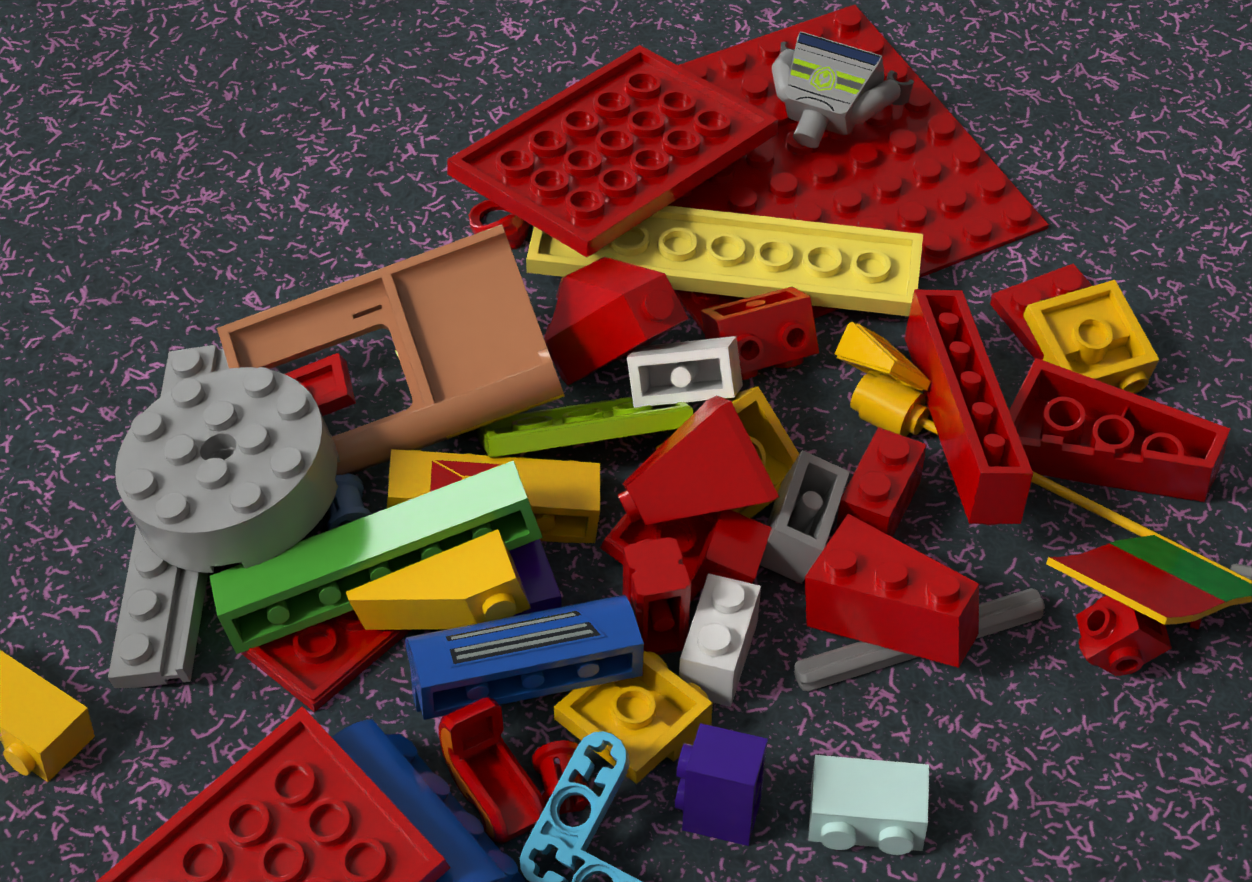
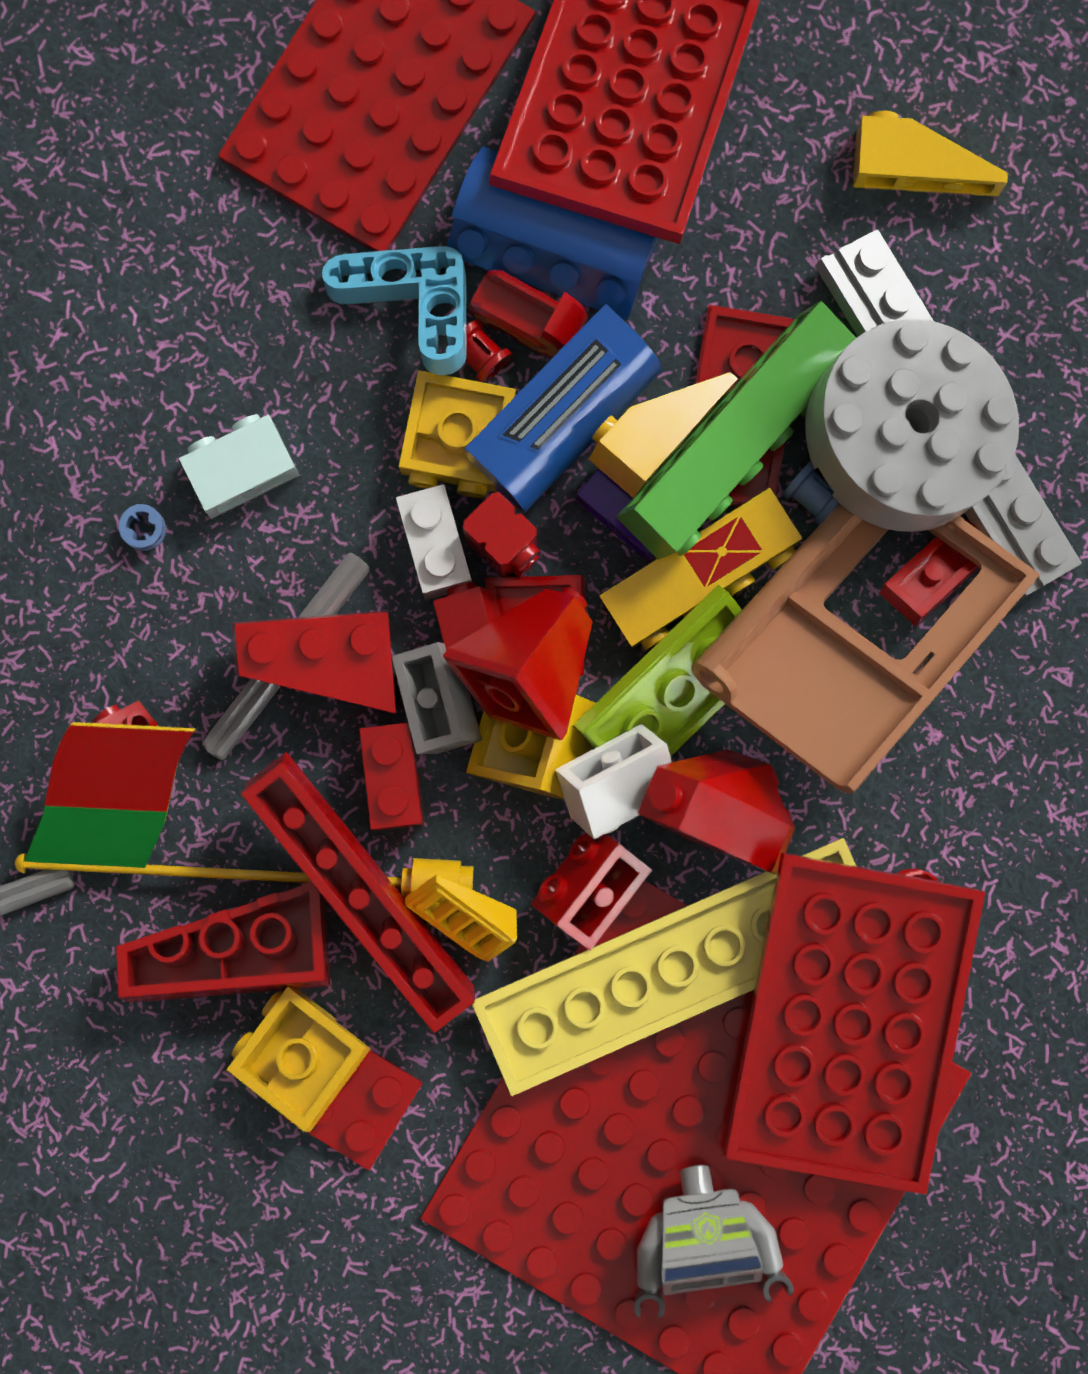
camera: 150 degrees right, 35 degrees up
(721, 783) = (348, 395): dark purple brick -> none
(1002, 829) = (130, 536): none -> medium blue bush

